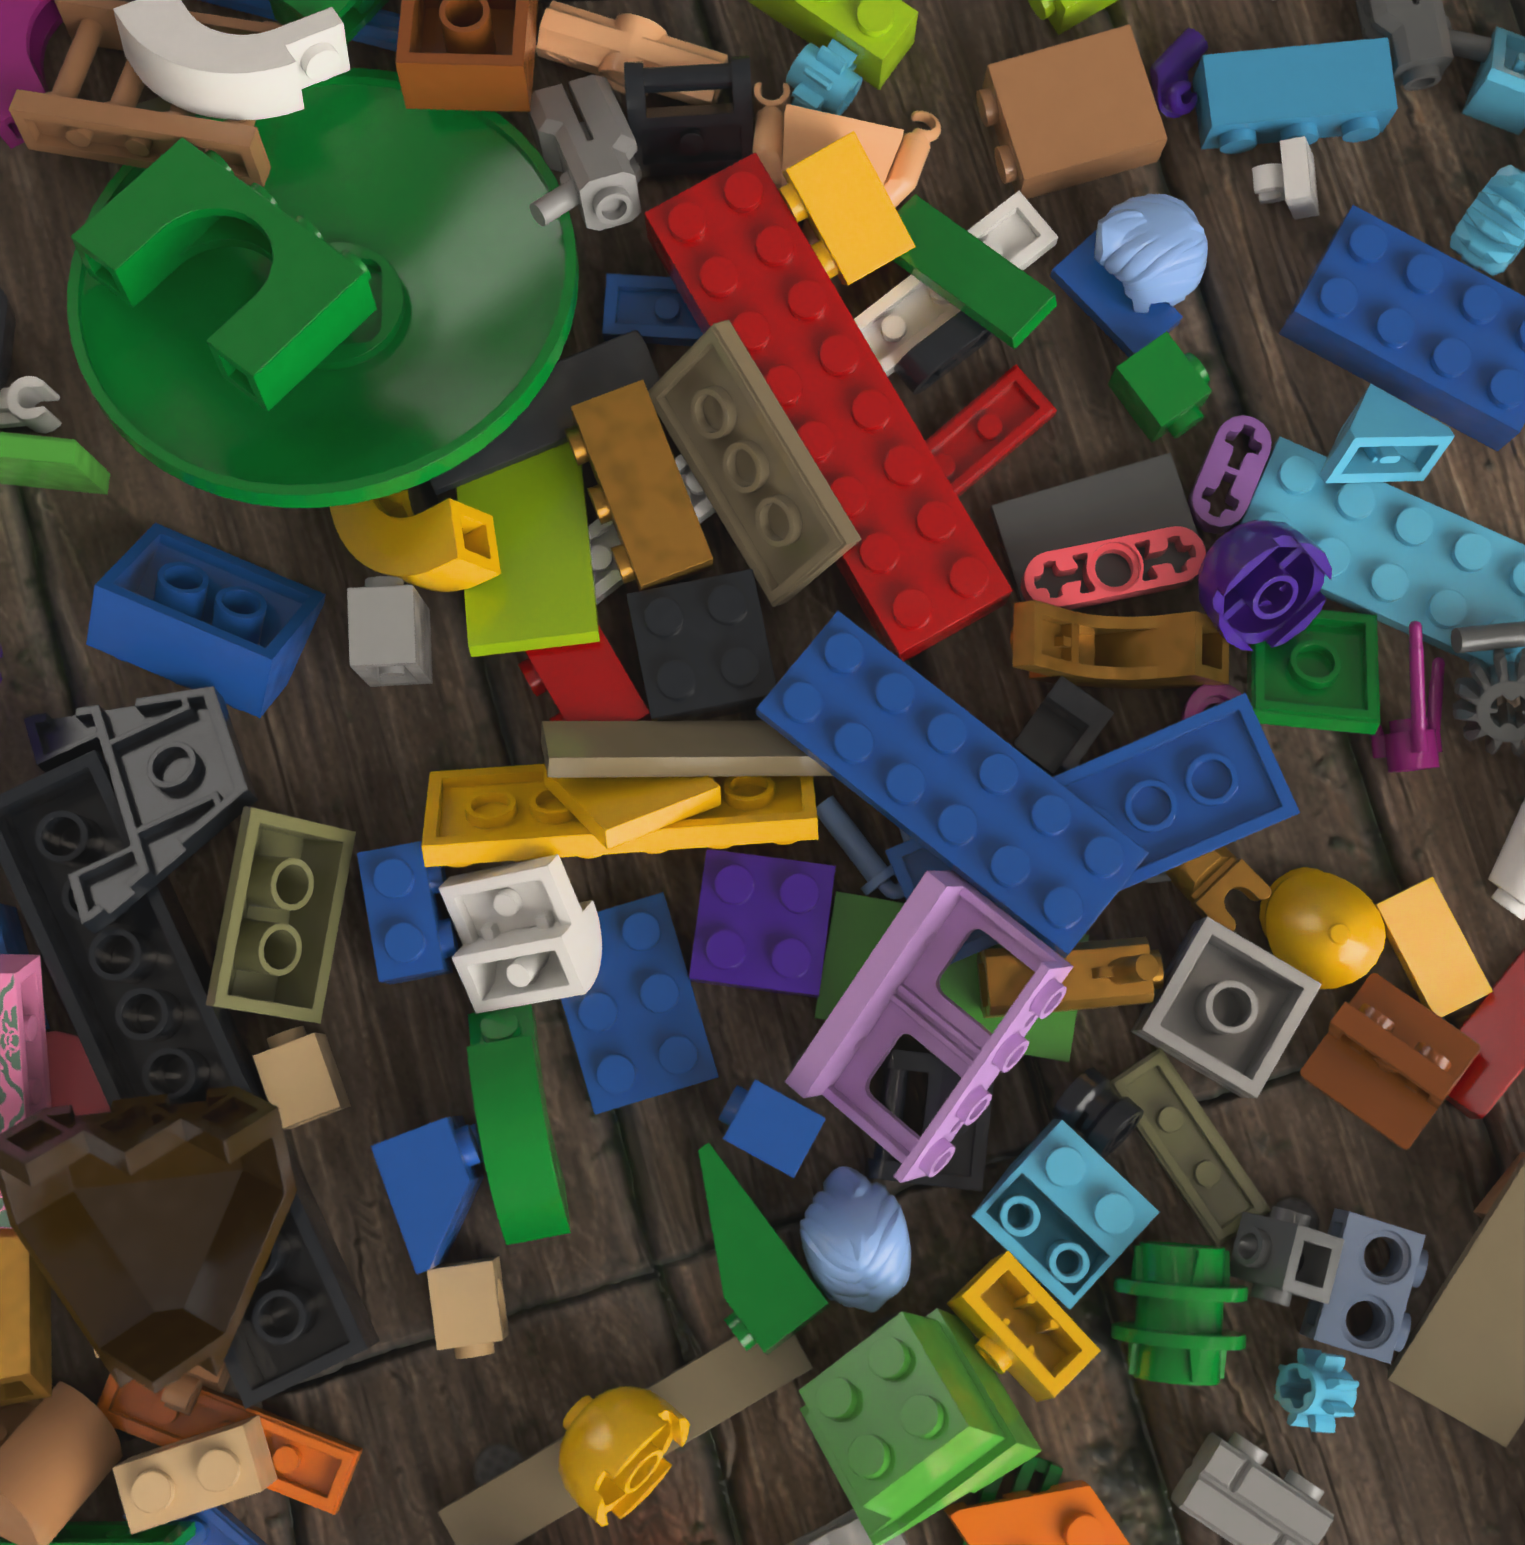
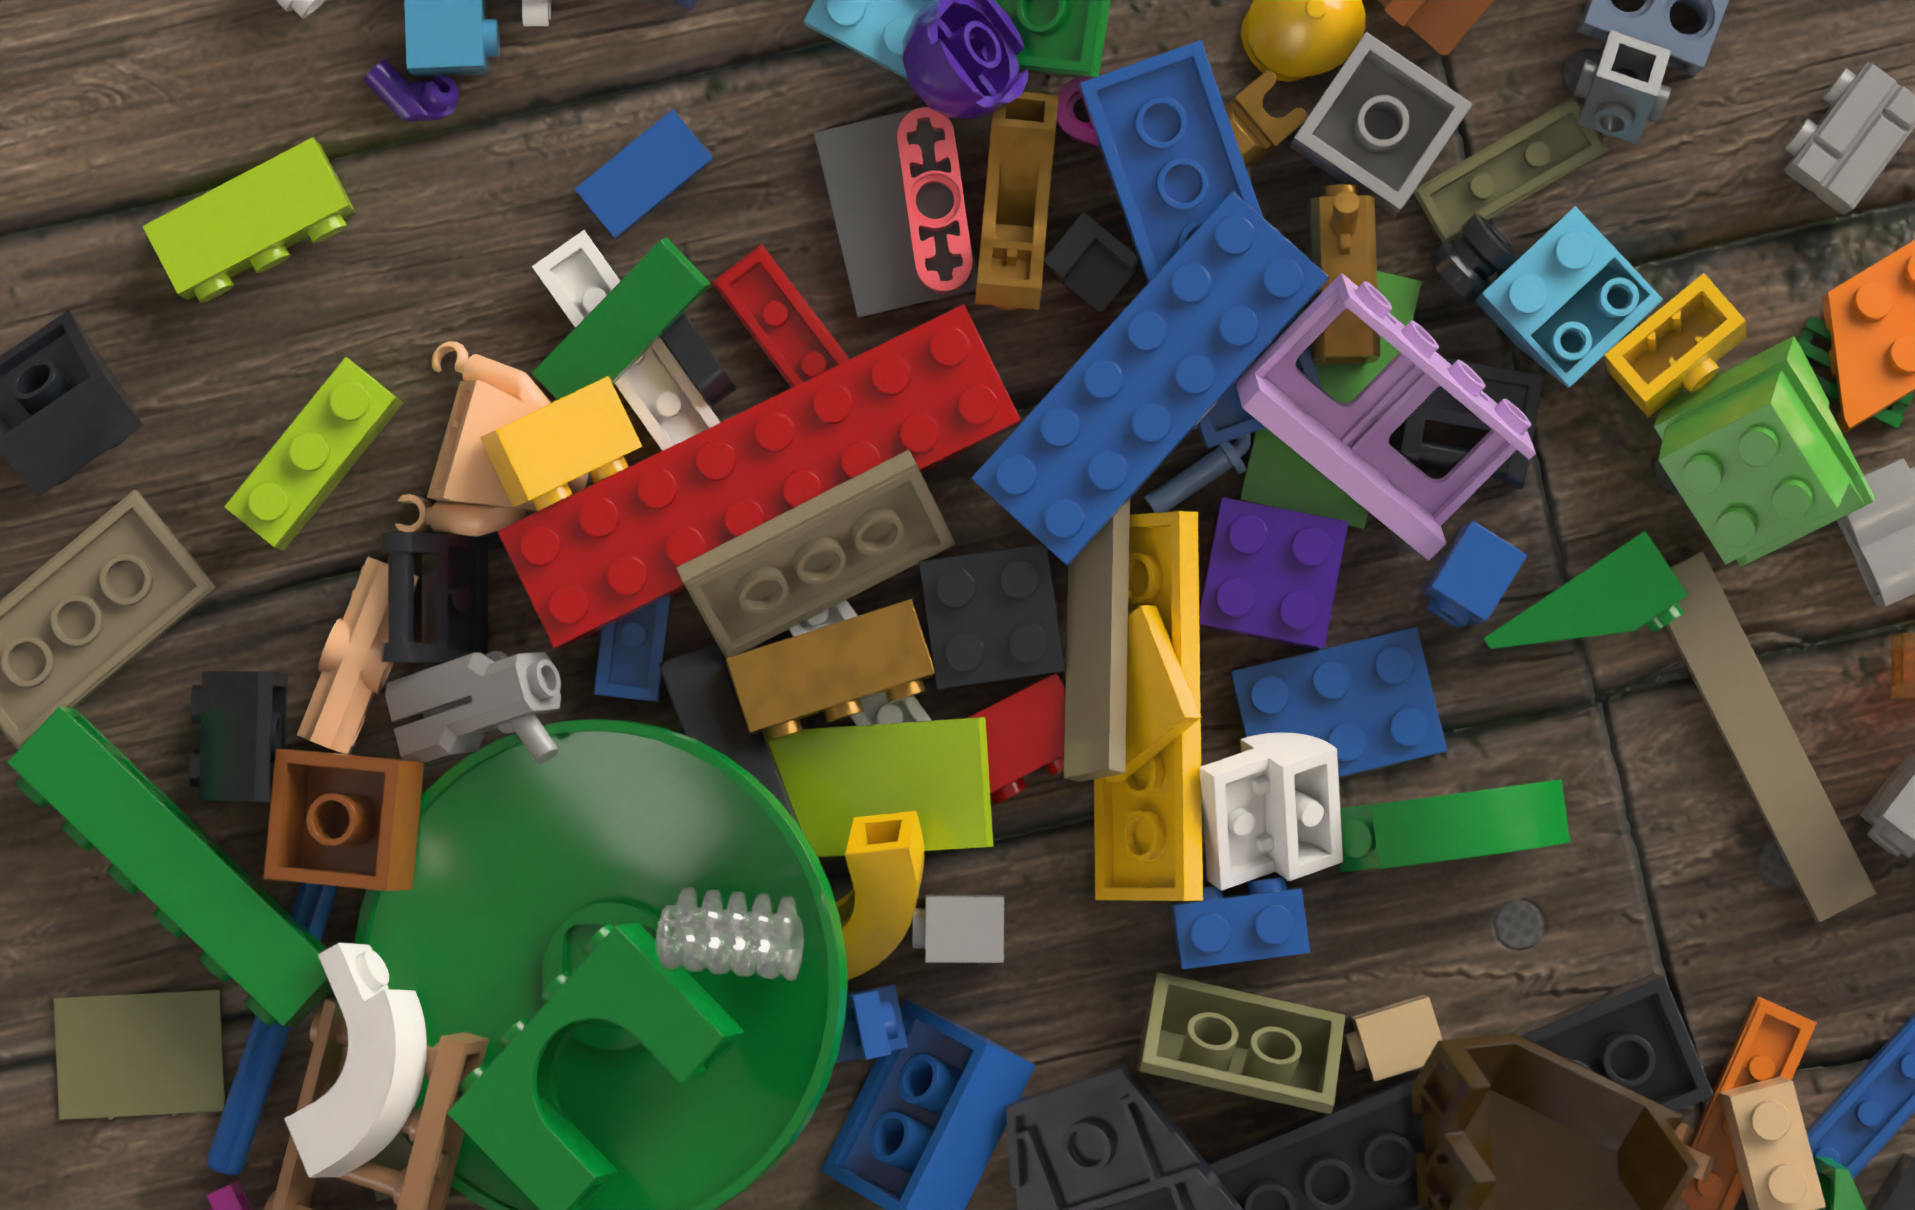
camera: 90 degrees left, 5 degrees up
(291, 544) = (872, 1024): none -> blue brick
(359, 382) = (731, 936): none -> clear piece
(431, 1184) = (1506, 908): blue slope -> none
(468, 1306) = (1625, 882): tan brick -> none
(617, 1449) = (1770, 741): yellow cylinder -> none
(824, 78) = (400, 458): medium azure gear -> none
(856, 1241) = (1584, 501): light blue hair -> none
(1071, 113) = (451, 206): medium nougat brick -> none
(1152, 249) = (607, 136): light blue hair -> none
(1162, 388) = (749, 134): green brick -> none
(1179, 1313) = (1670, 194): green piece -> none
(1242, 479) = (845, 61): medium lavender beam -> none
(1316, 1390) = (1750, 67): medium azure gear -> none

